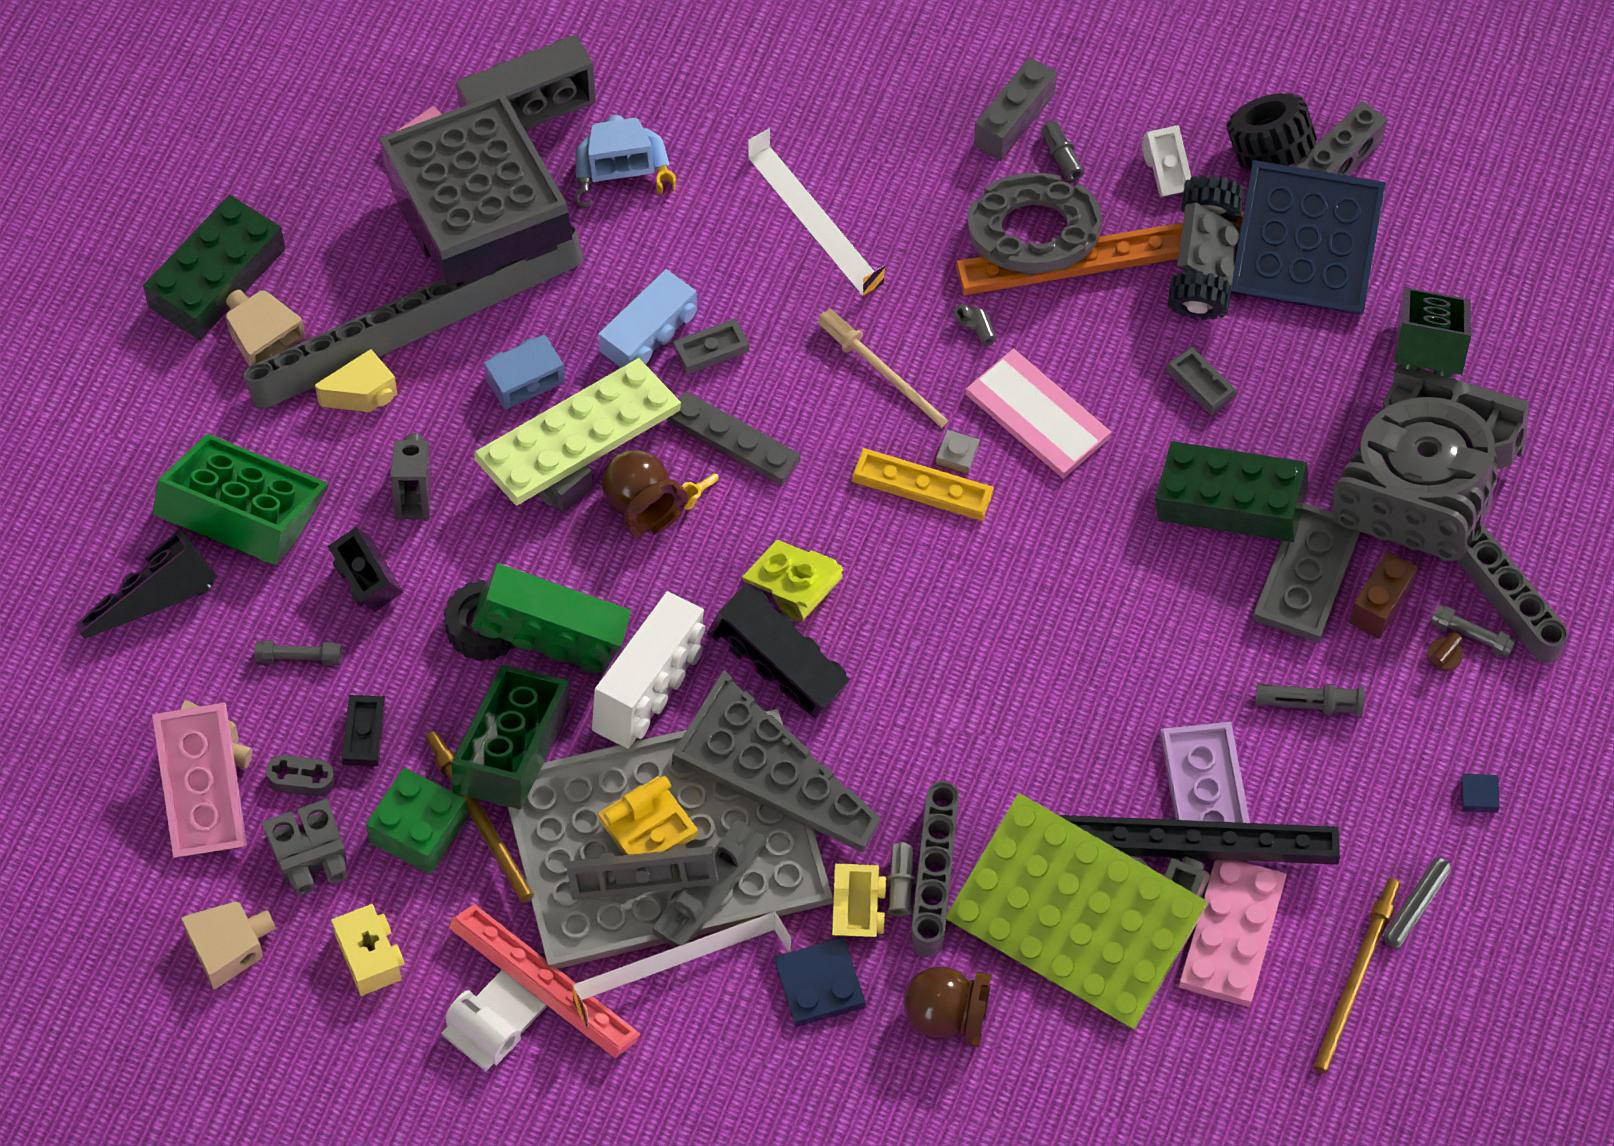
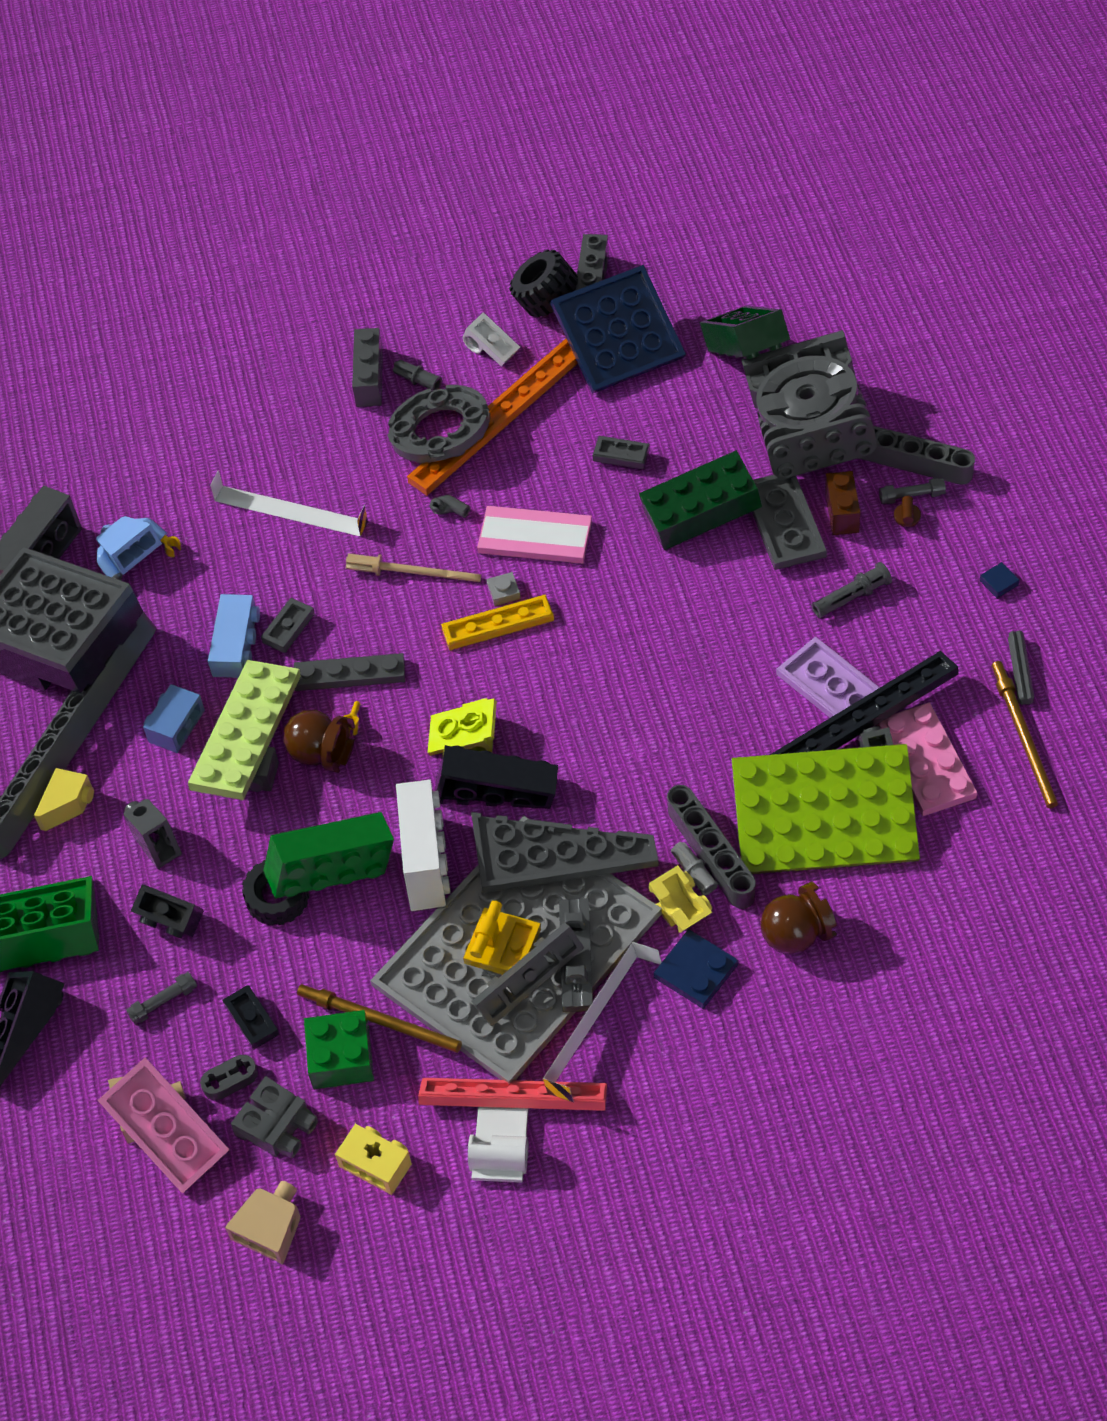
camera: 30 degrees left, 5 degrees down
(510, 736) = (363, 949): dark green brick -> none
(1207, 247) = (545, 345): plate -> none

